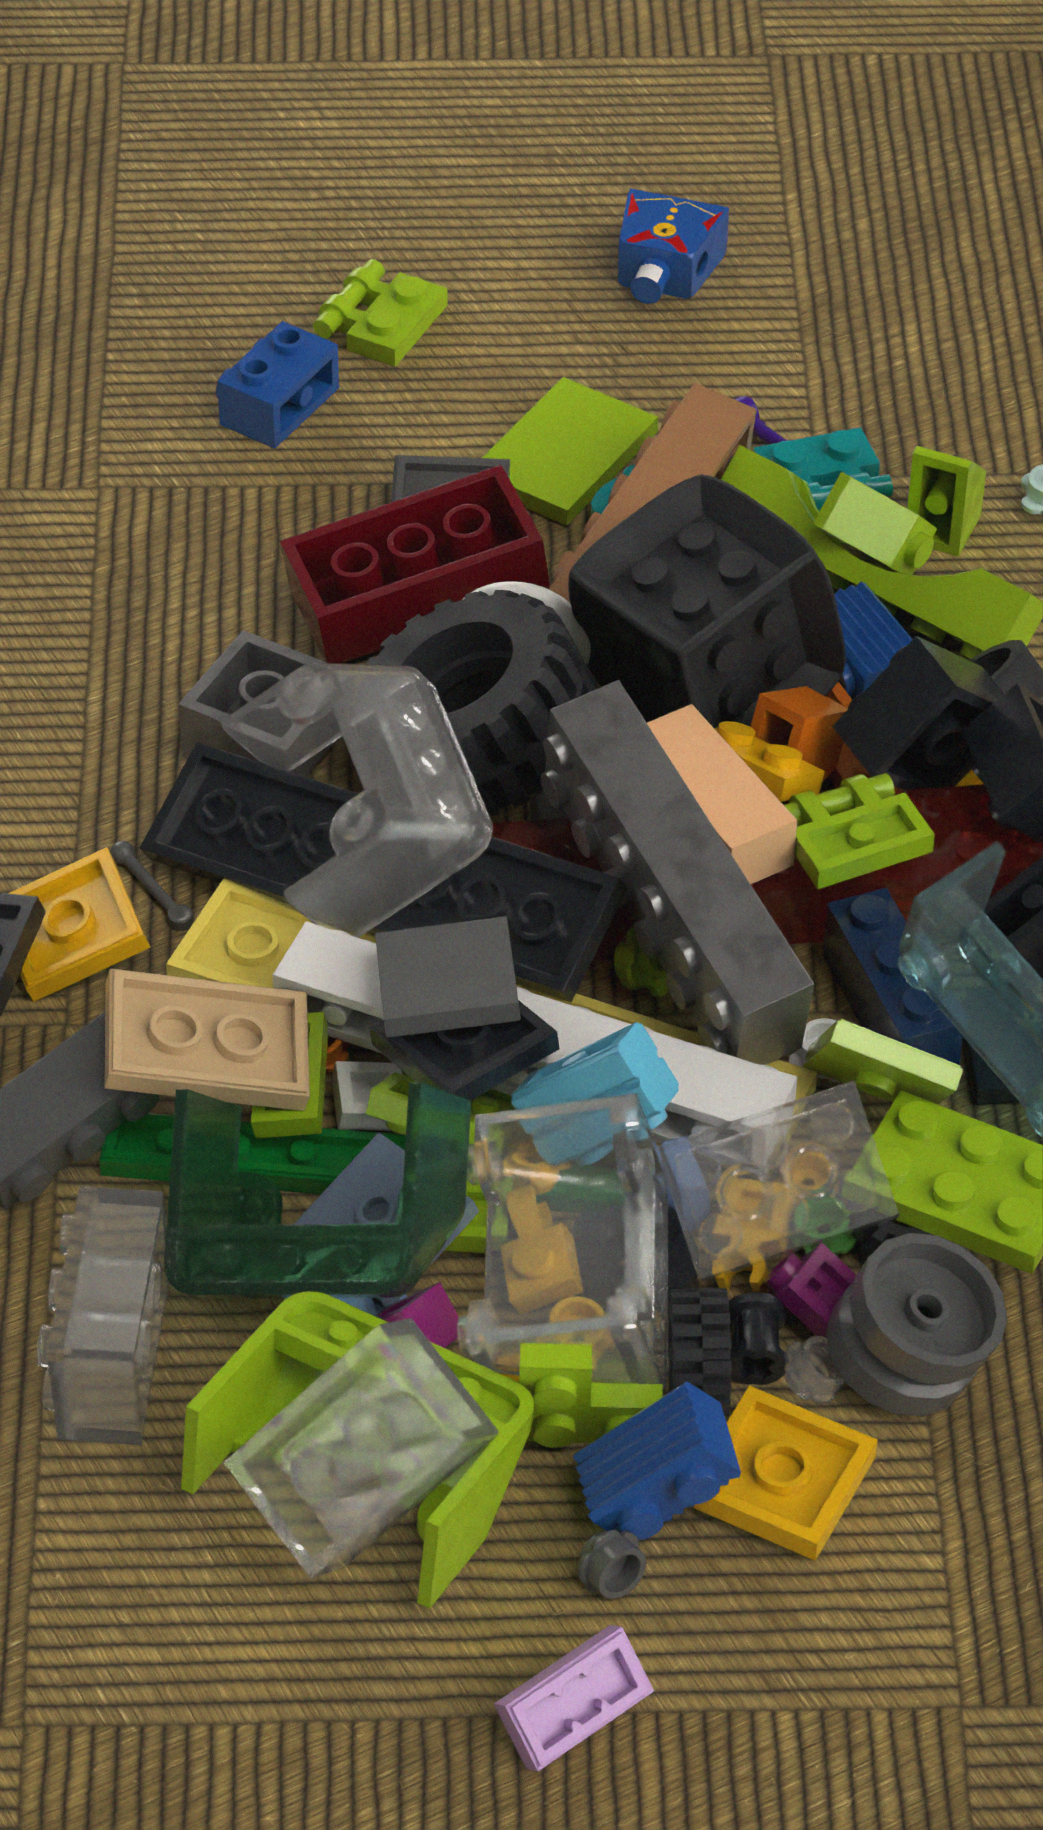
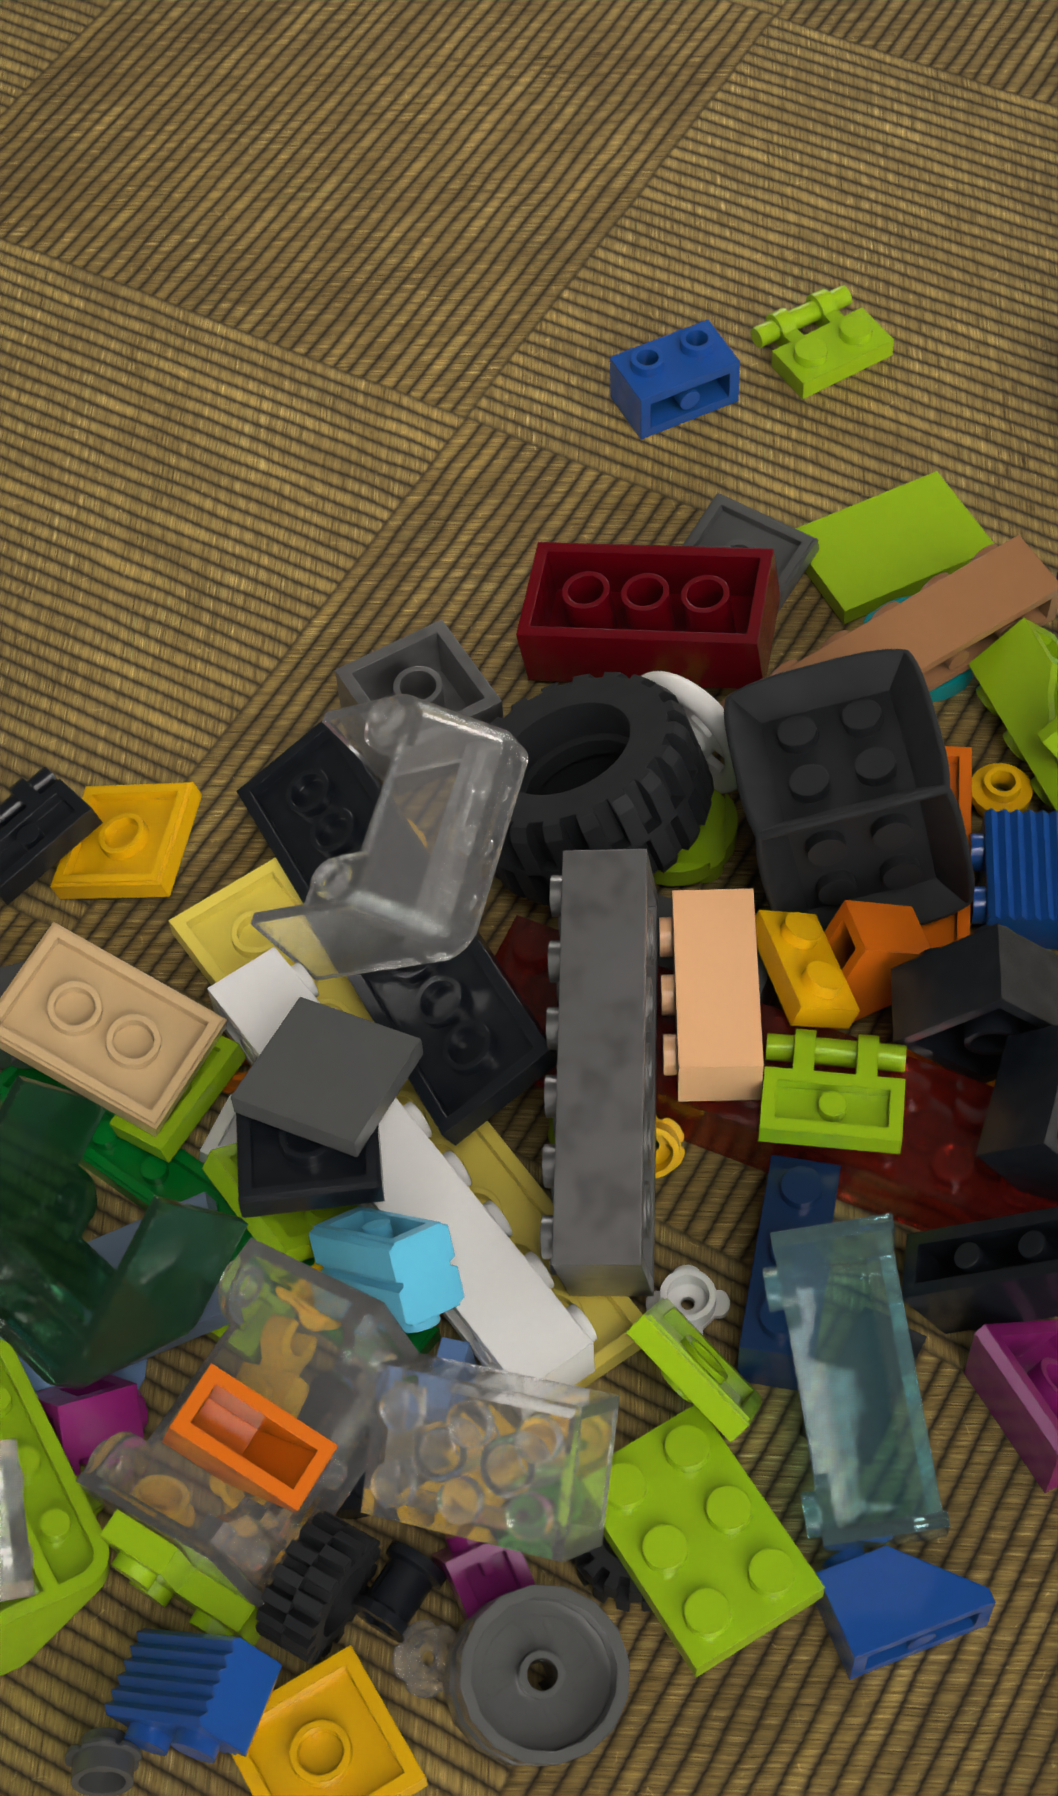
camera: 35 degrees right, 10 degrees up
(179, 915) = (230, 869): dark grey hinge -> none
(577, 1256) = (248, 1441): none -> orange slope

